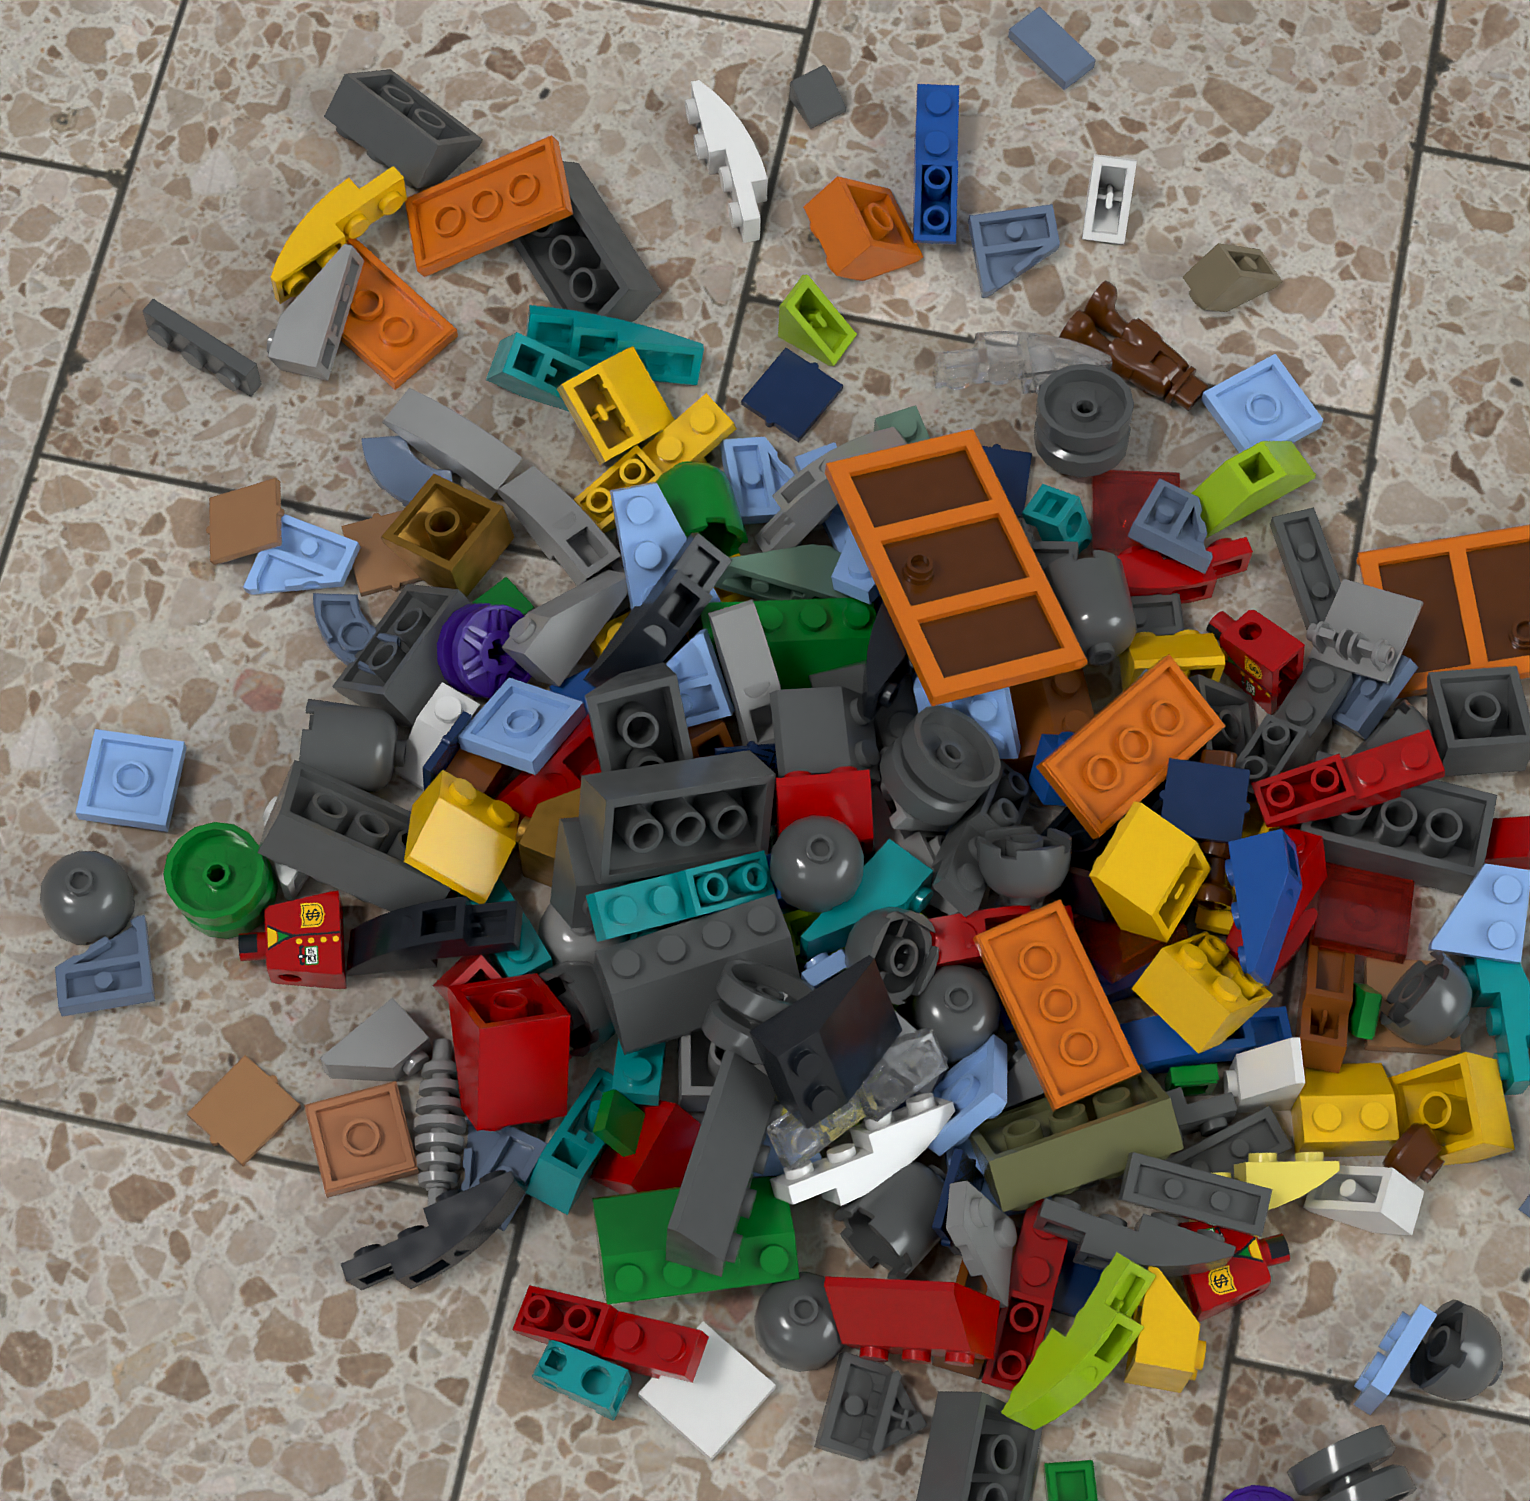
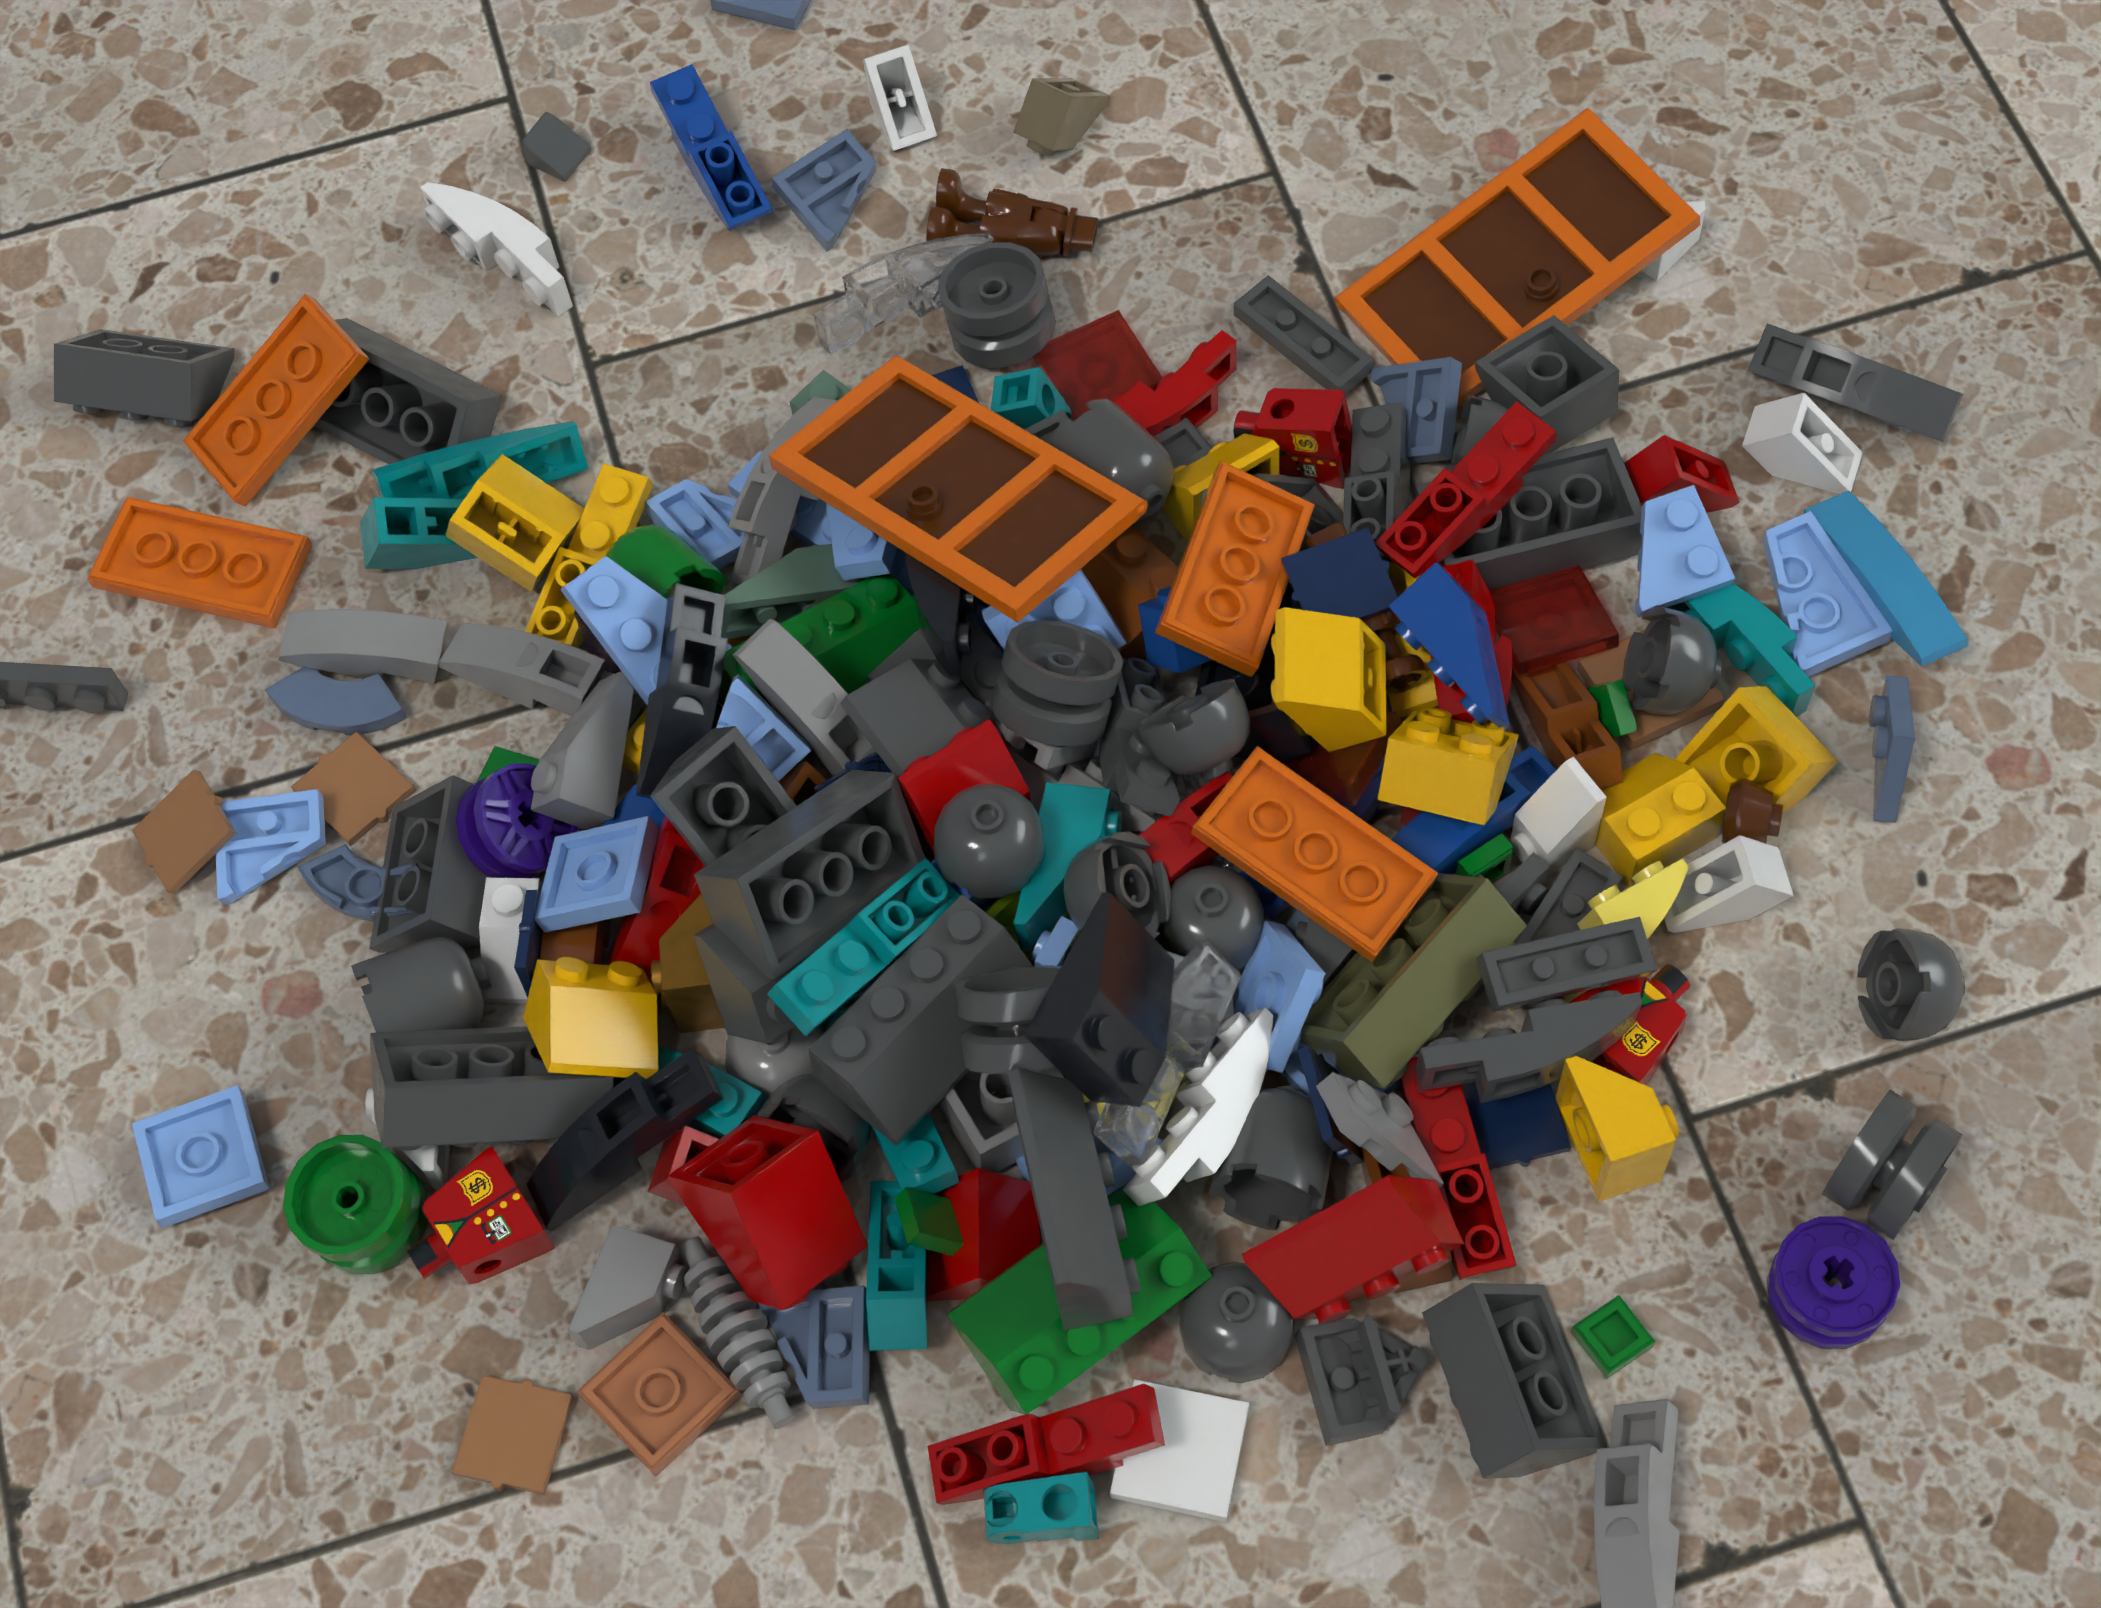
camera: 20 degrees left, 5 degrees down
(86, 897) = (216, 1303): dark grey cylinder -> none
(108, 973) = (282, 1371): sand blue wing -> none
(314, 322) = (151, 597): light grey slope -> none
(329, 224) = (114, 510): yellow slope -> none
(449, 535) = (411, 731): pearl gold slope -> none
(456, 1228) = (818, 1426): black slope -> none
(792, 394) = (689, 430): dark blue piece -> none
(813, 323) = (673, 351): lime slope -> none
(861, 229) = (669, 244): orange slope -> none
(1076, 1363) = (1550, 1201): lime slope -> none
(1173, 526) = (1144, 353): sand blue wing -> none
(1251, 482) = (1190, 288): lime slope -> none
(1262, 406) = (1162, 215): light blue plate -> none
(1364, 630) = (1390, 355): light grey hinge -> none
(1399, 1346) = (1856, 1018): light blue plate -> none

